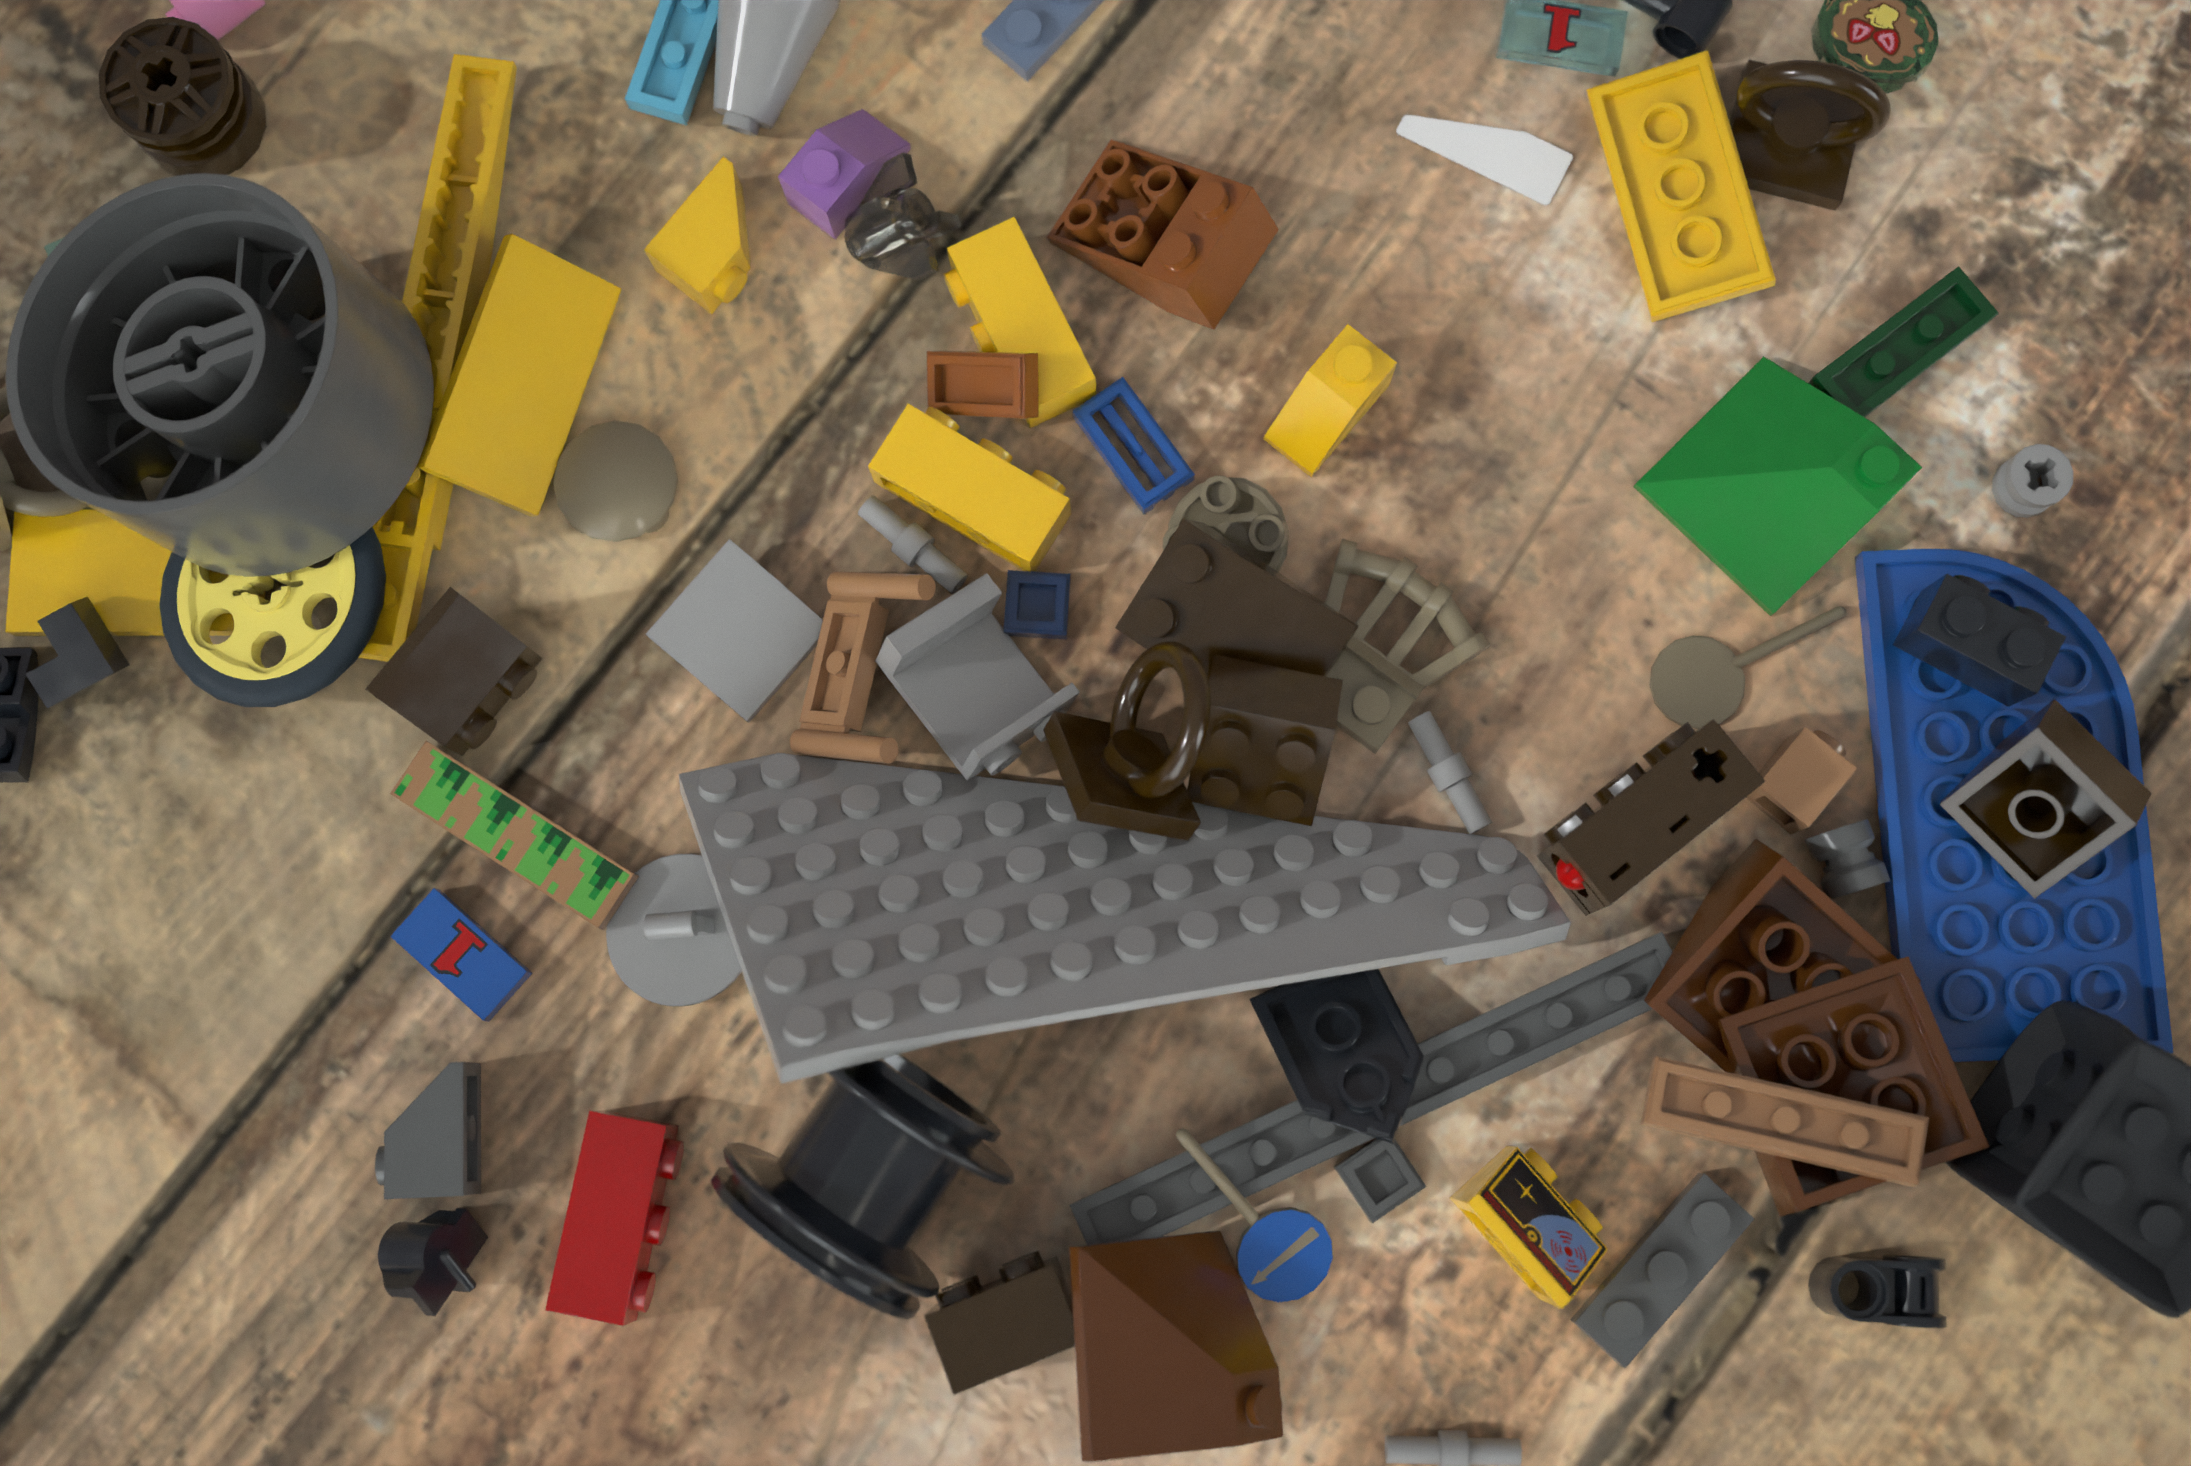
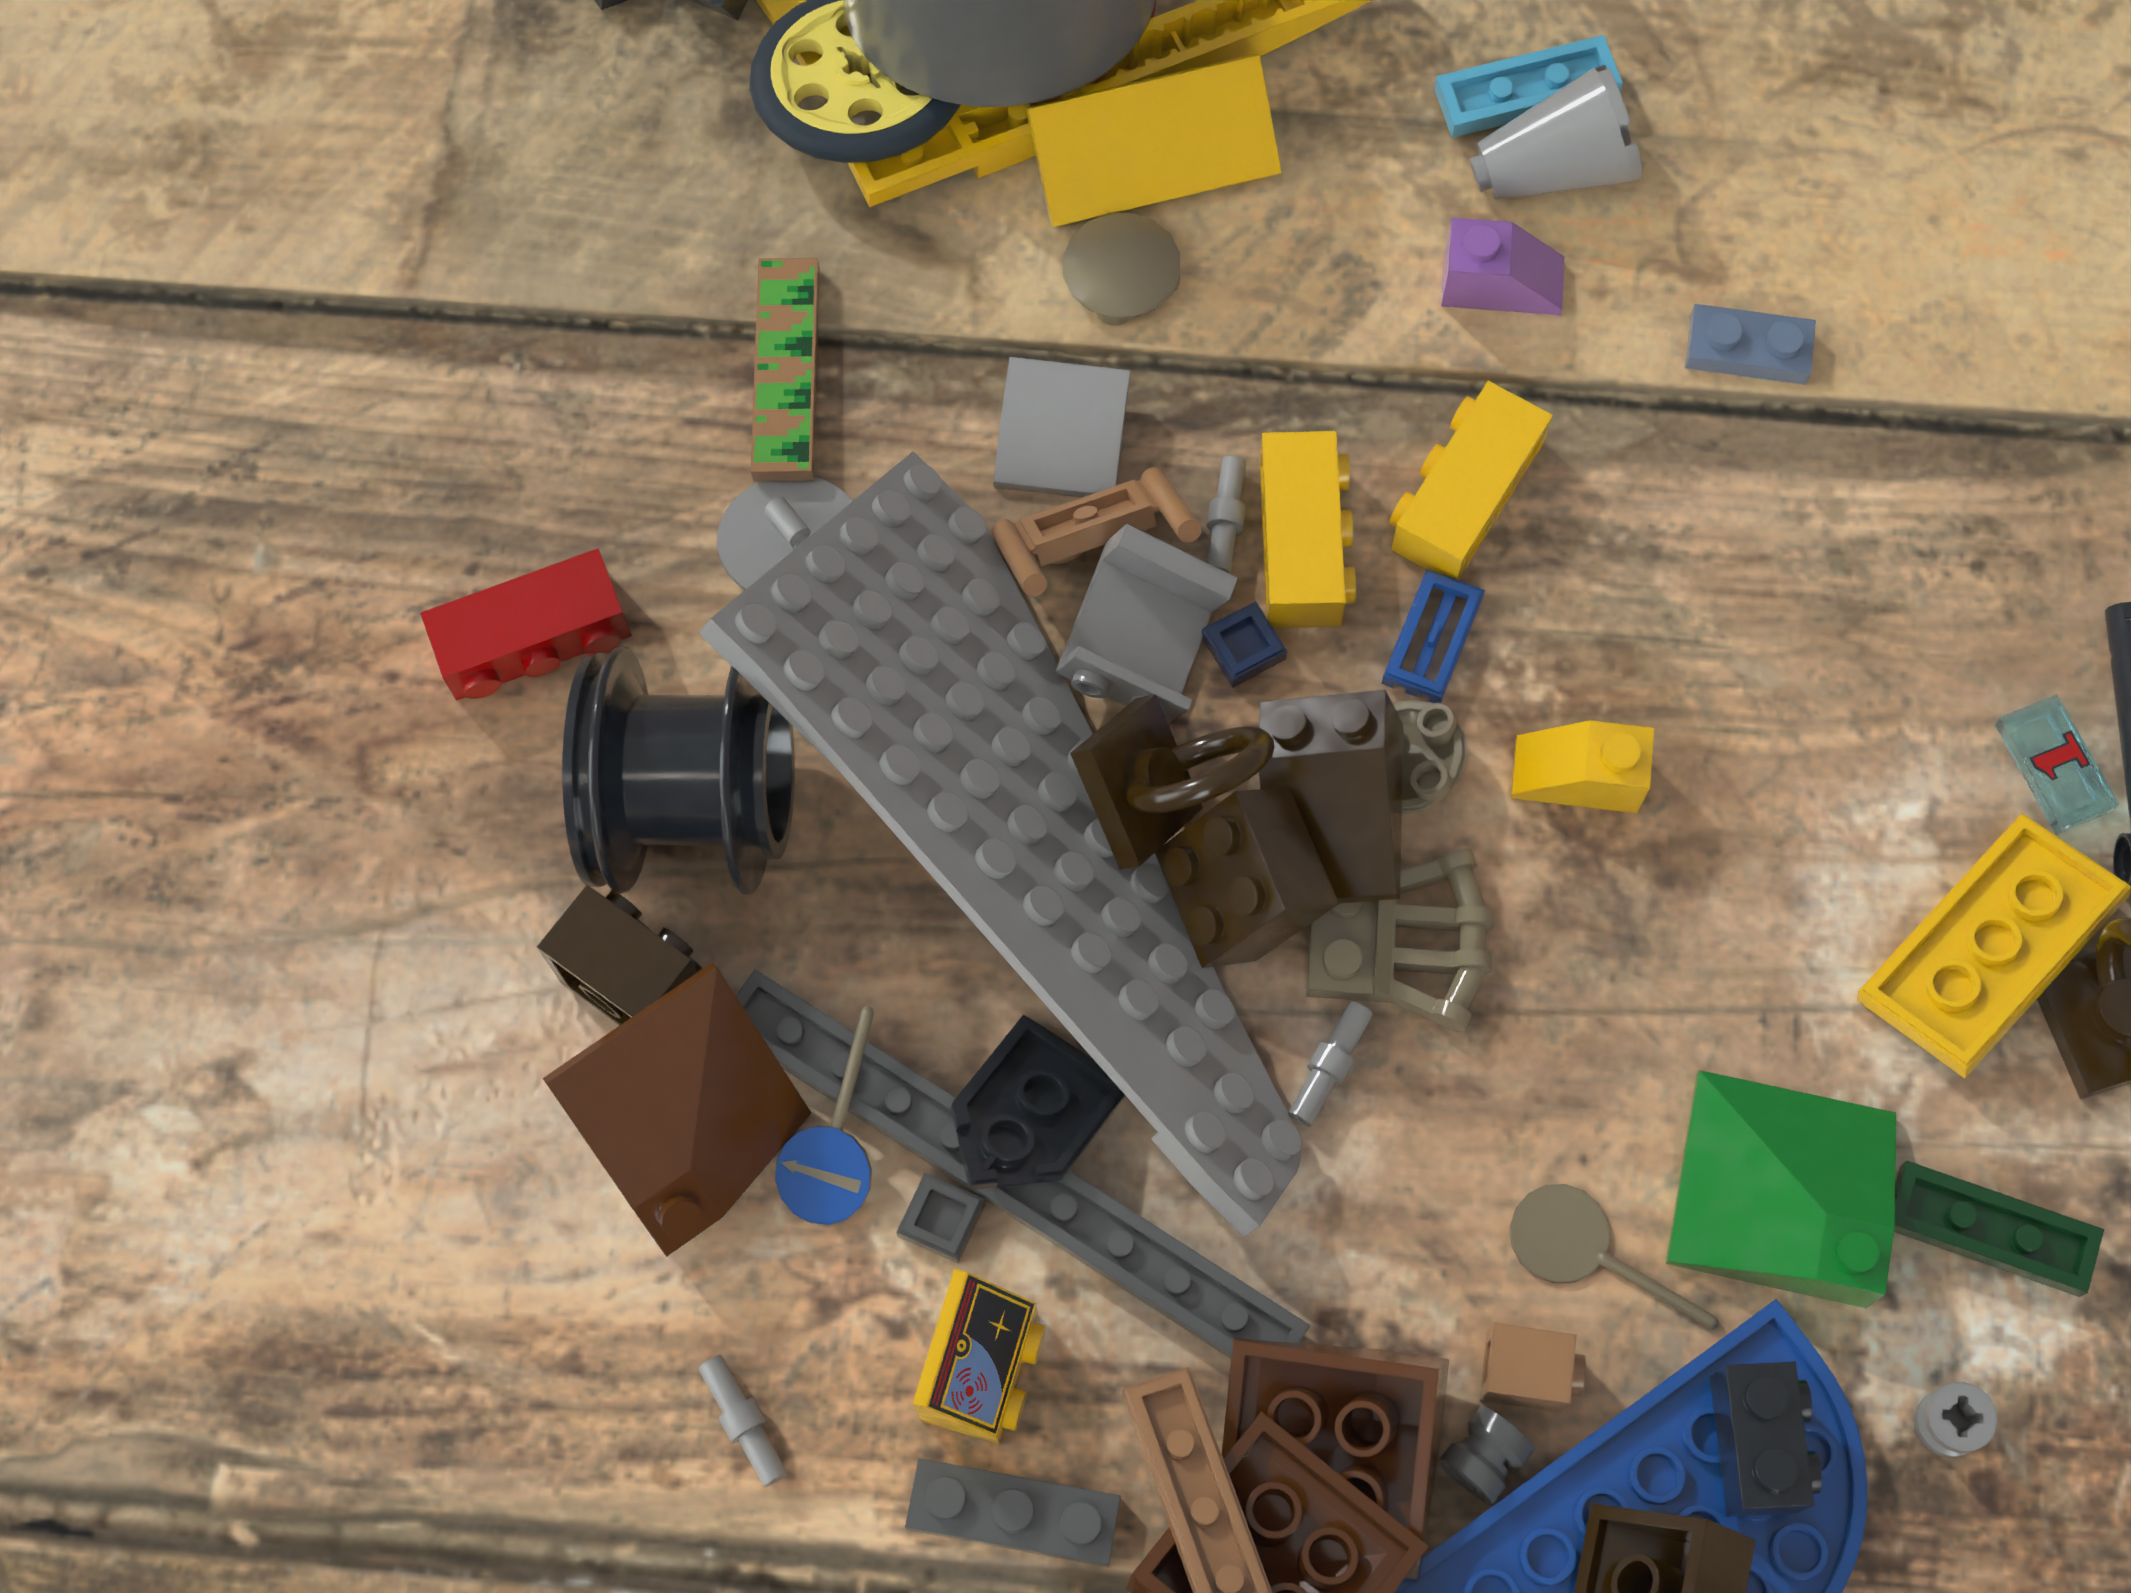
camera: 55 degrees right, 10 degrees down
(430, 1257) = (411, 511): black piece -> none
(436, 1140) = (509, 458): dark grey slope -> none
(456, 674) = (883, 238): dark brown slope -> none
(461, 954) = (665, 390): blue tile -> none
(706, 241) = (1368, 207): yellow slope -> none
(895, 224) = (1483, 333): clear smoke brick -> none
(983, 383) = (1395, 479): dark orange tile -> none
(1166, 231) = (1634, 548): dark orange slope -> none
(1497, 153) = (1912, 787): white sticker -> none
(1647, 815) = (1399, 1241): dark brown piece -> none

